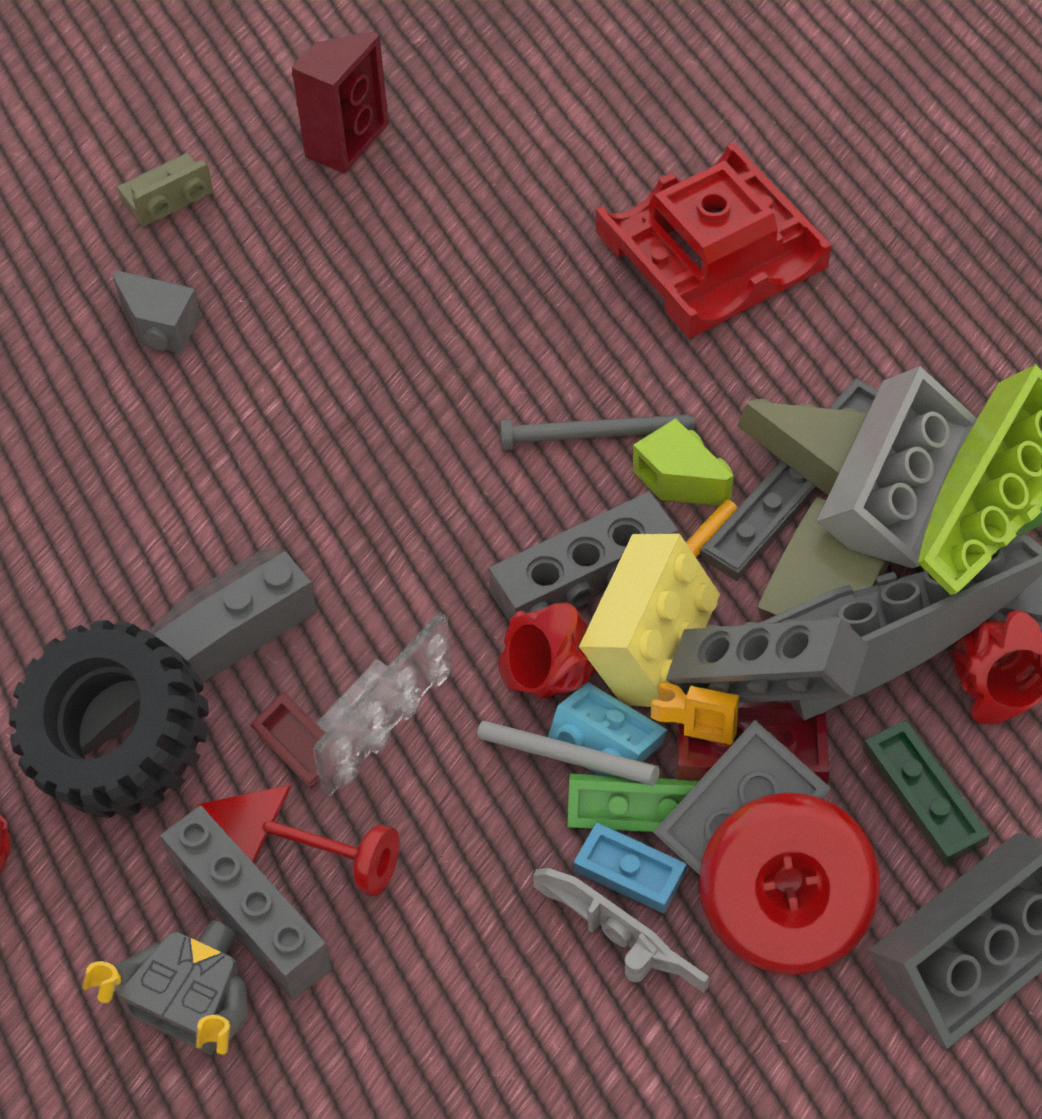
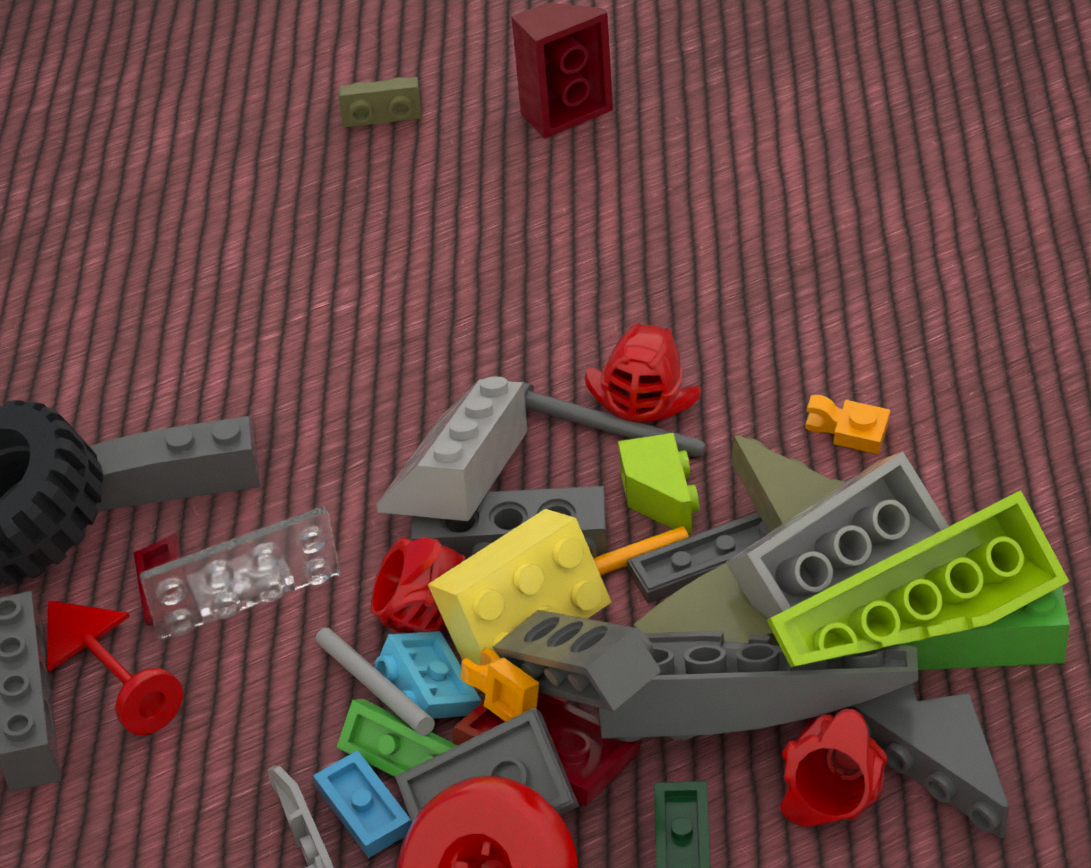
camera: 30 degrees right, 10 degrees down
(158, 310) = (300, 195): dark grey slope -> none
(500, 512) = (461, 454): none -> light grey slope
(610, 364) = (642, 363): none -> red piece
(745, 250) = (849, 295): red piece -> none
(804, 349) = (853, 426): none -> light orange plate

